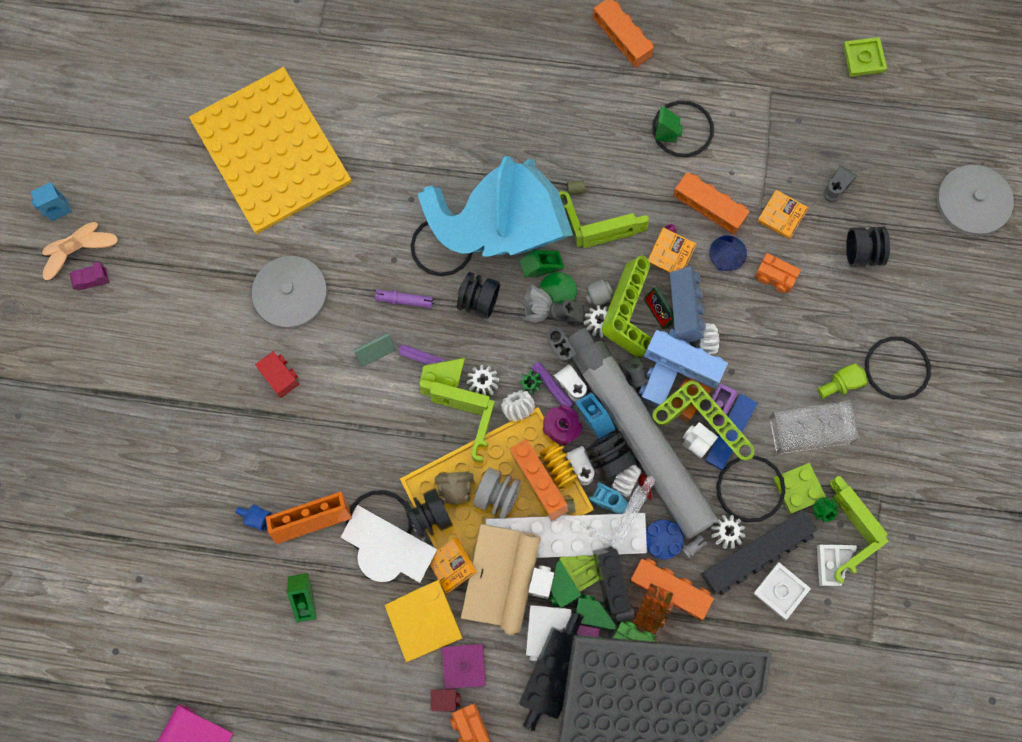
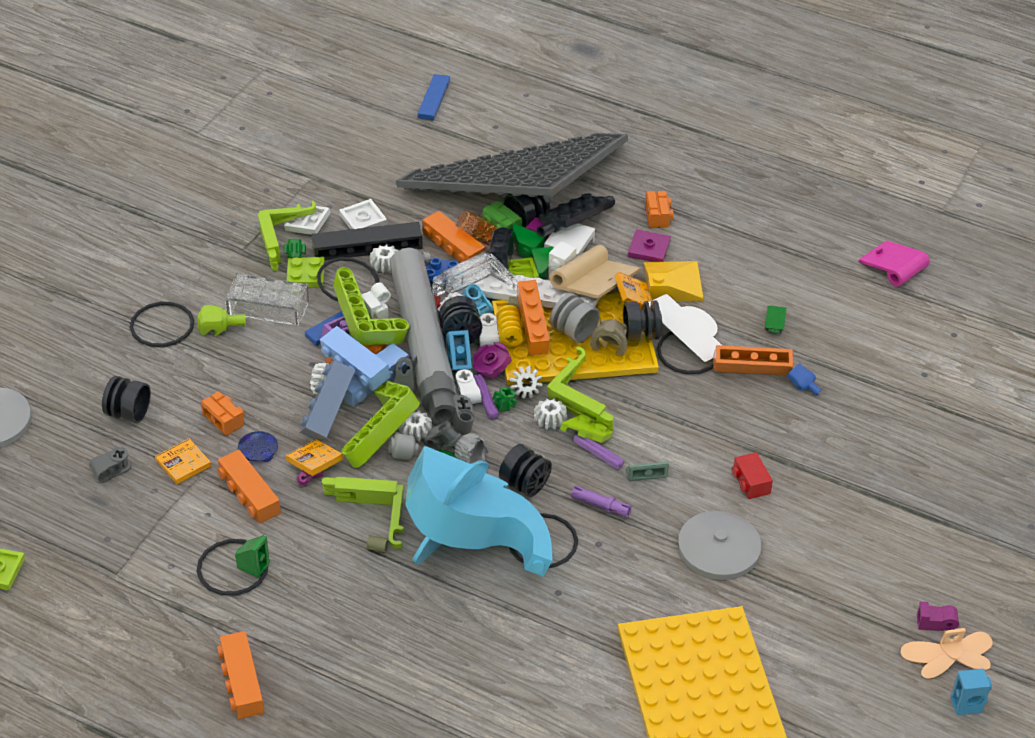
camera: 165 degrees left, 30 degrees down
(445, 700) = (674, 227): dark red brick -> none
(659, 307) = (350, 420): slope -> none

